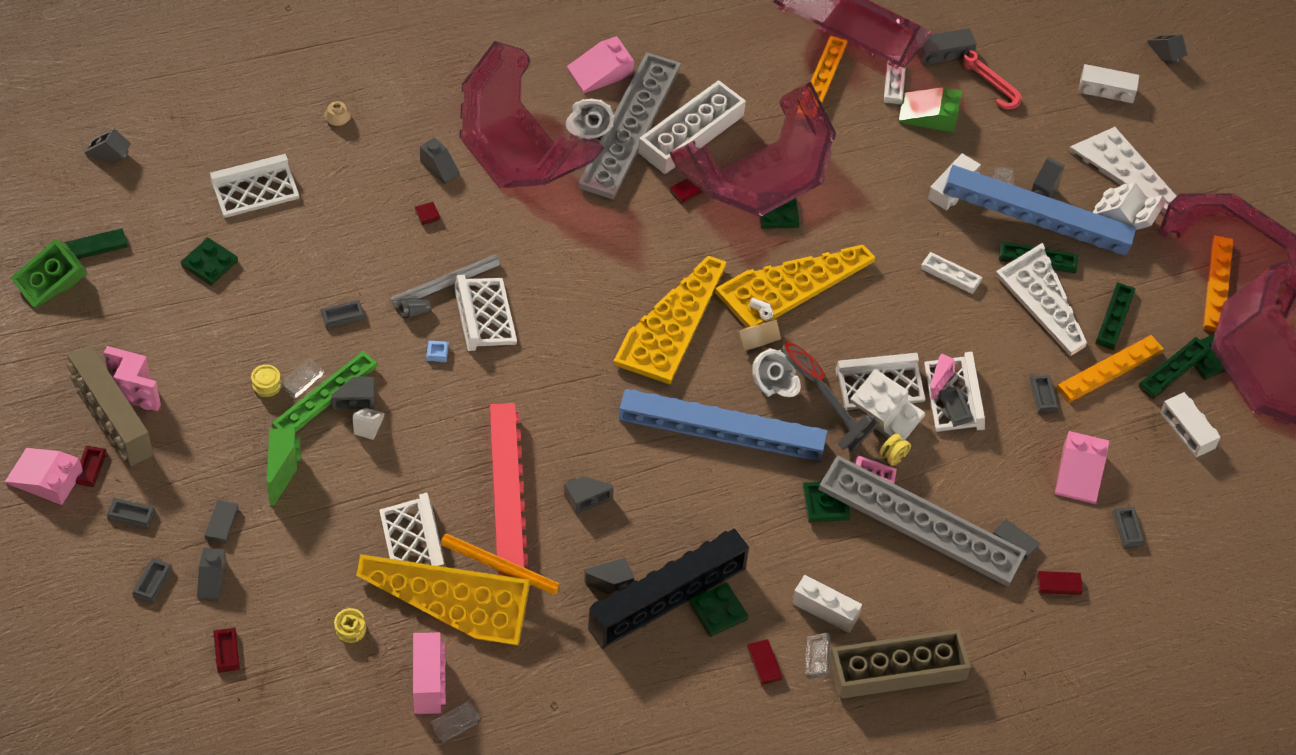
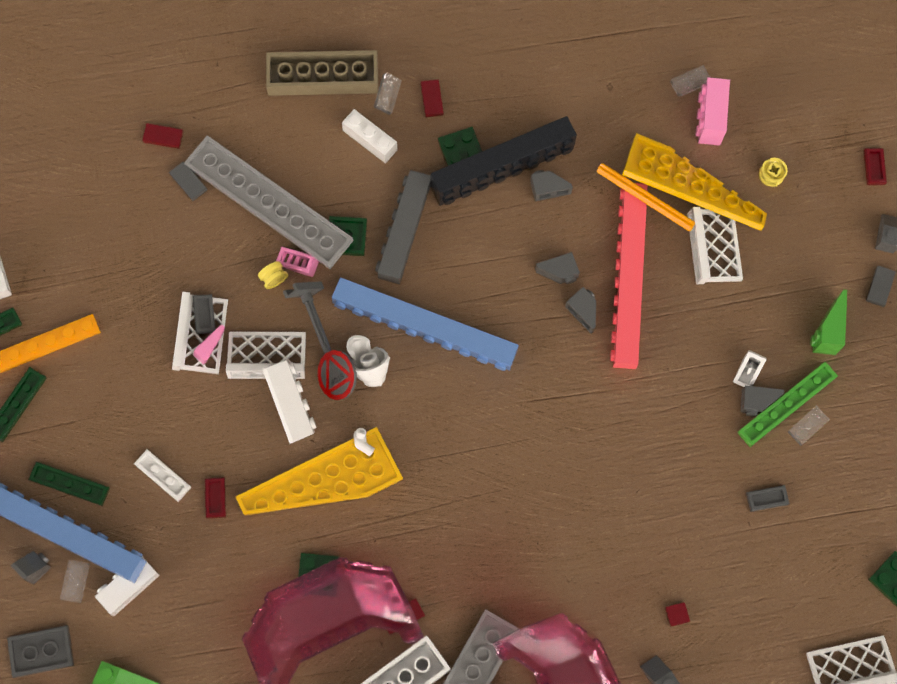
camera: 170 degrees left, 20 degrees up
(266, 380) = (842, 426): light yellow wheel -> none
(413, 307) = (699, 493): dark grey cone -> none
(437, 351) = (679, 444): light blue tile -> none
(446, 280) = (665, 525): light grey axle -> none
(472, 327) = (647, 481): white fence -> none
(555, 458) = (583, 308): none -> dark grey slope
(662, 337) = (461, 434): yellow wing -> none
(759, 335) = (377, 415): tan slope -> none
(765, 517) = (404, 227): none -> dark grey brick
(847, 326) = (289, 401): none -> white slope
(889, 404) = (269, 315): white bracket -> none
(894, 260) = (215, 498): none -> dark red tile
(1015, 132) = (40, 651): none -> dark grey tile
(1041, 293) = (82, 436): white wing -> none
(1043, 394) = (115, 325): dark grey tile -> none
(1081, 467) = (106, 240): bright pink slope -> none
(1128, 527) = (84, 181): dark grey tile -> none

